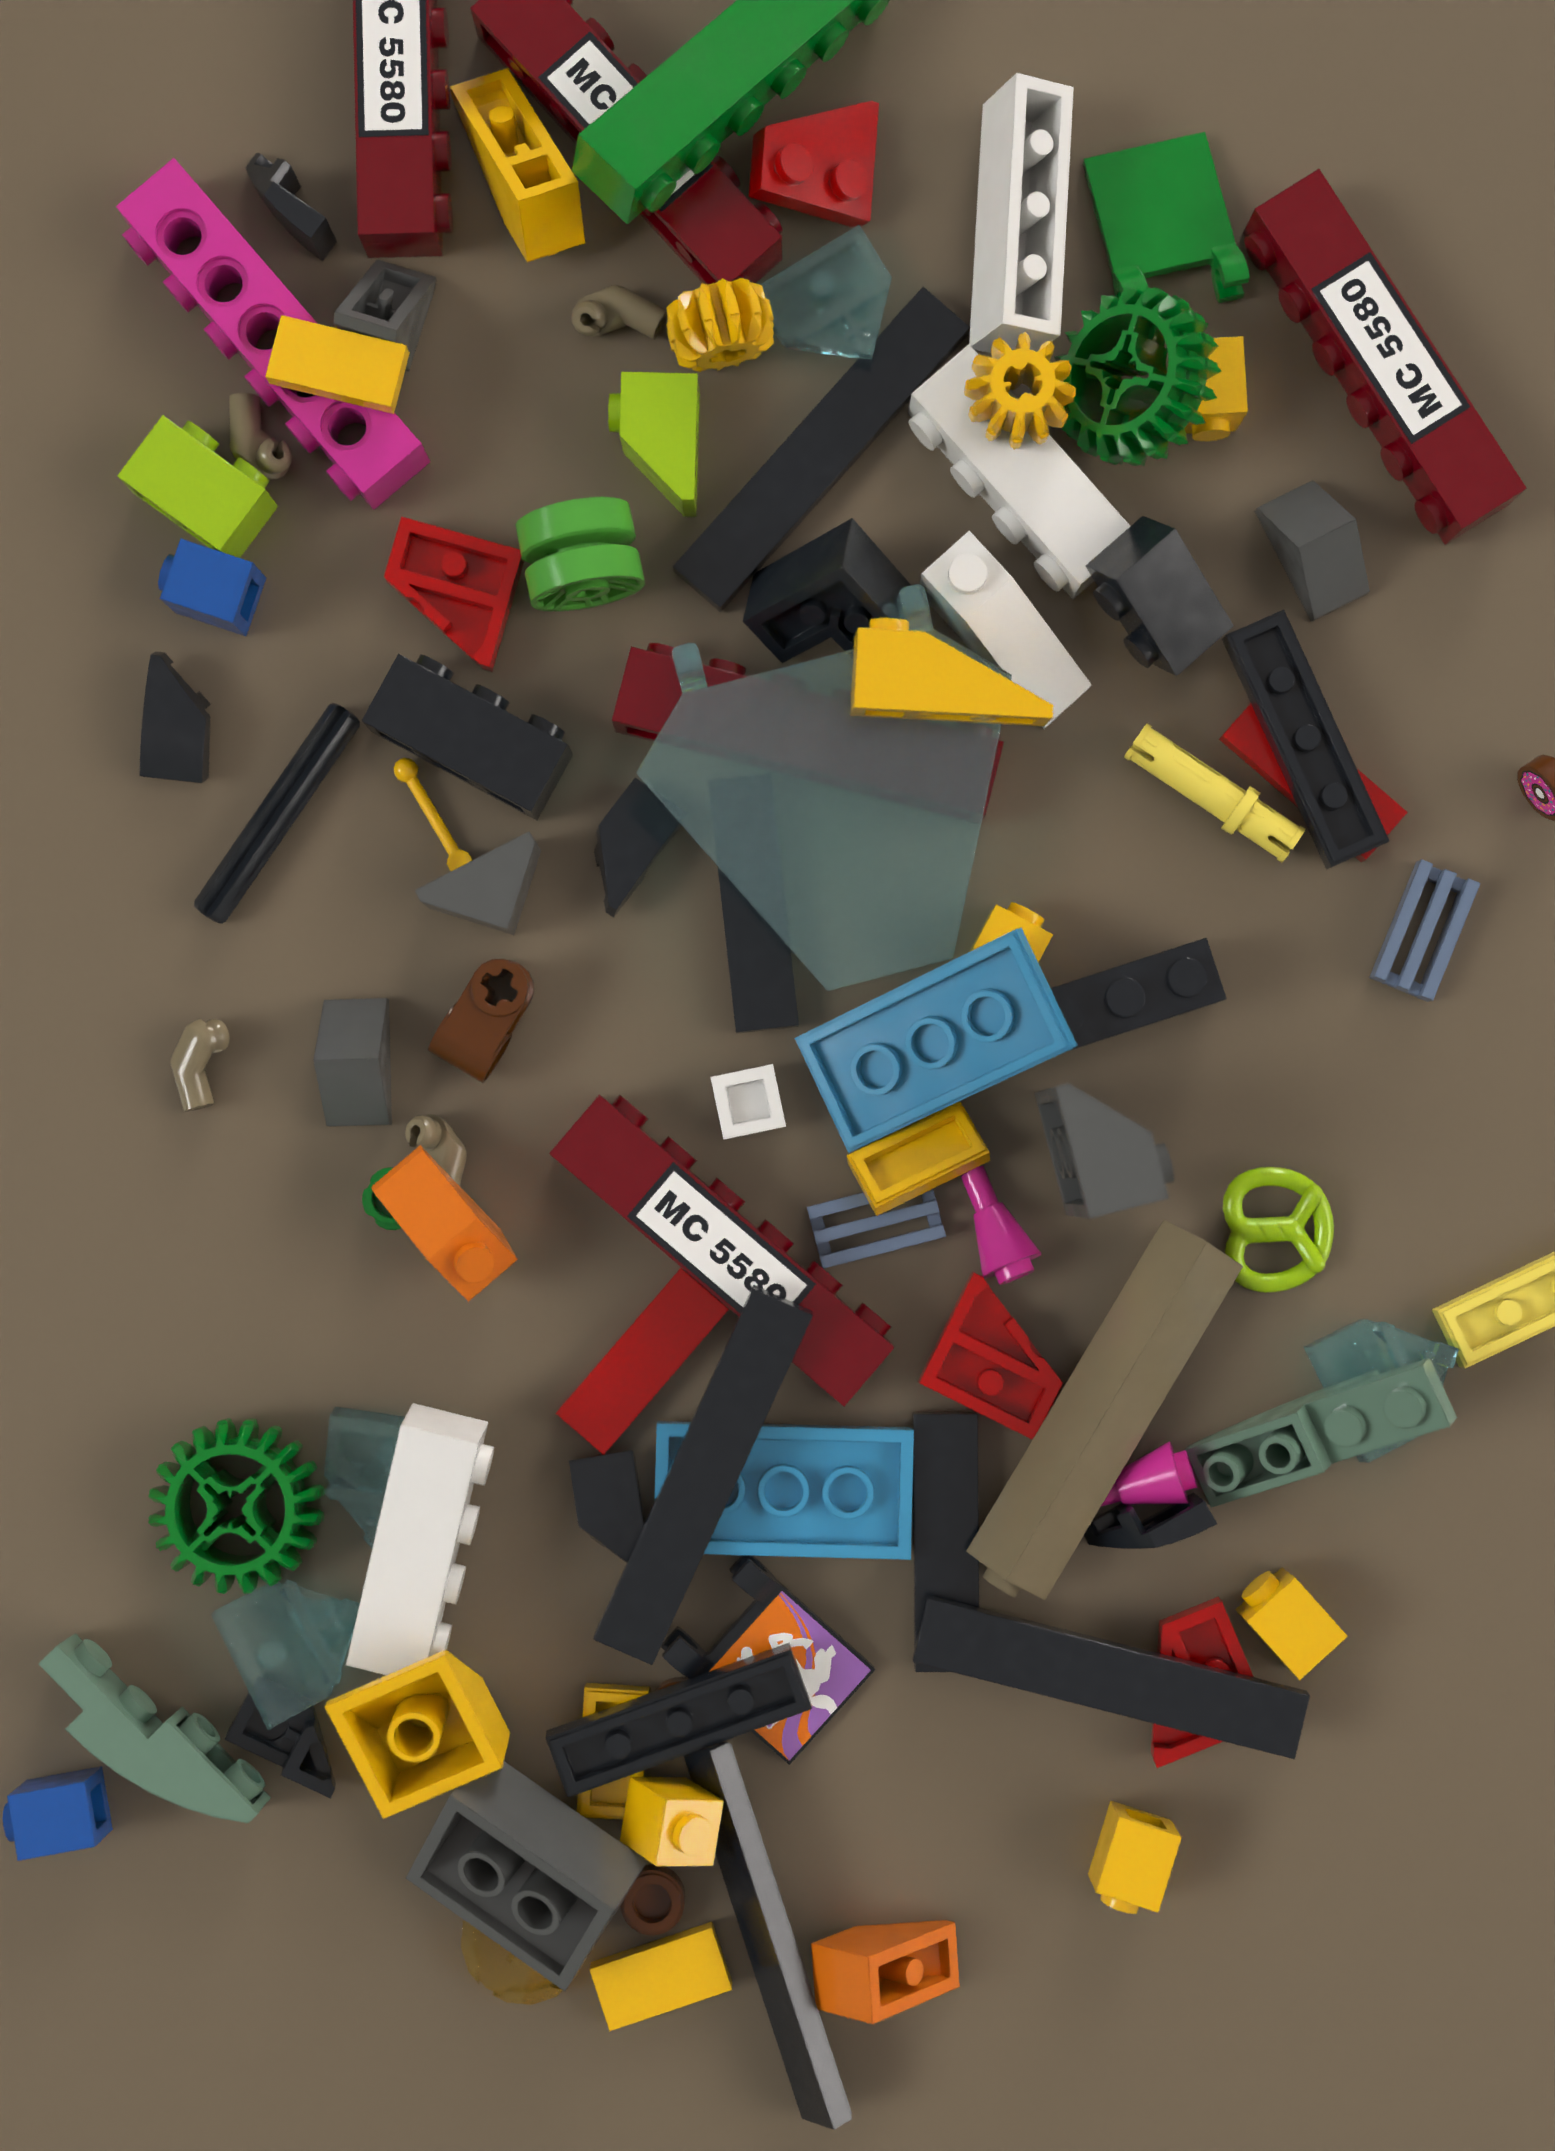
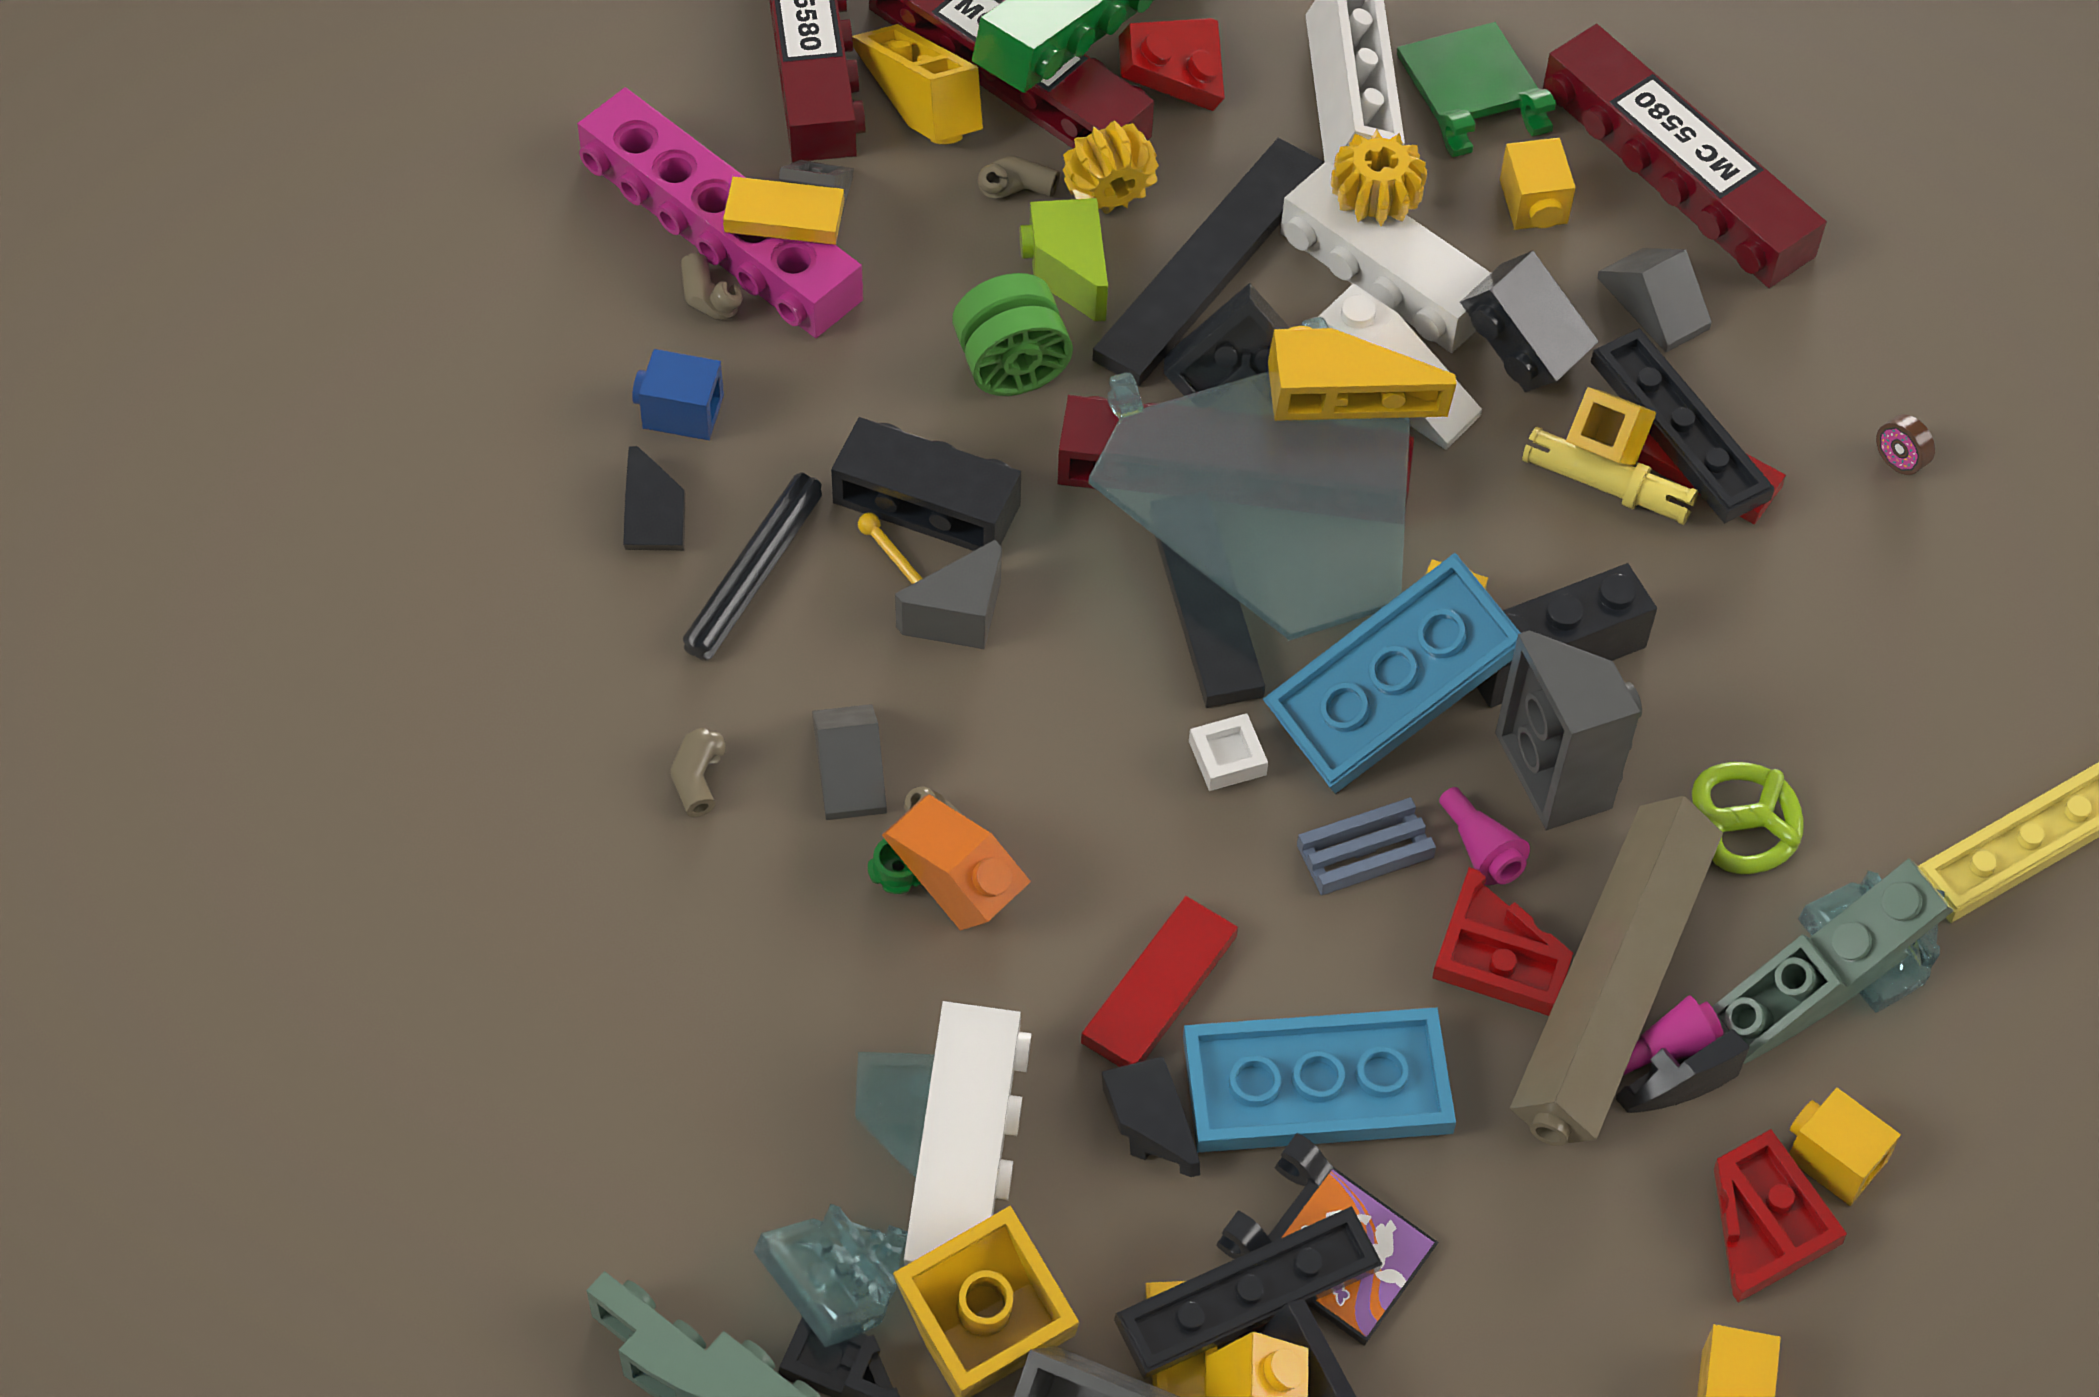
camera: 10 degrees left, 30 degrees down
(196, 1543) = (793, 1105): green gear -> none
(198, 488) = (652, 312): lime brick -> none
(277, 188) = (724, 125): black slope -> none
(456, 584) = (900, 377): red wing -> none
(475, 1027) = (969, 700): reddish brown piece -> none
(630, 842) = (1085, 555): black slope -> none
(703, 1474) = (1237, 1056): black tile -> none
(716, 1243) = (1252, 882): dark red brick -> none
(831, 298) = (1202, 152): clear light blue slope -> none
(918, 1158) = (1397, 782): yellow tile -> none
(944, 1510) = (1487, 1132): black tile -> none
(1111, 1676) = (1677, 1203): black tile -> none
(1128, 339) = (1485, 181): green gear -> none
(1223, 754) = (1611, 426): none -> yellow brick
(1445, 881) = (1832, 531): sand blue tile -> none

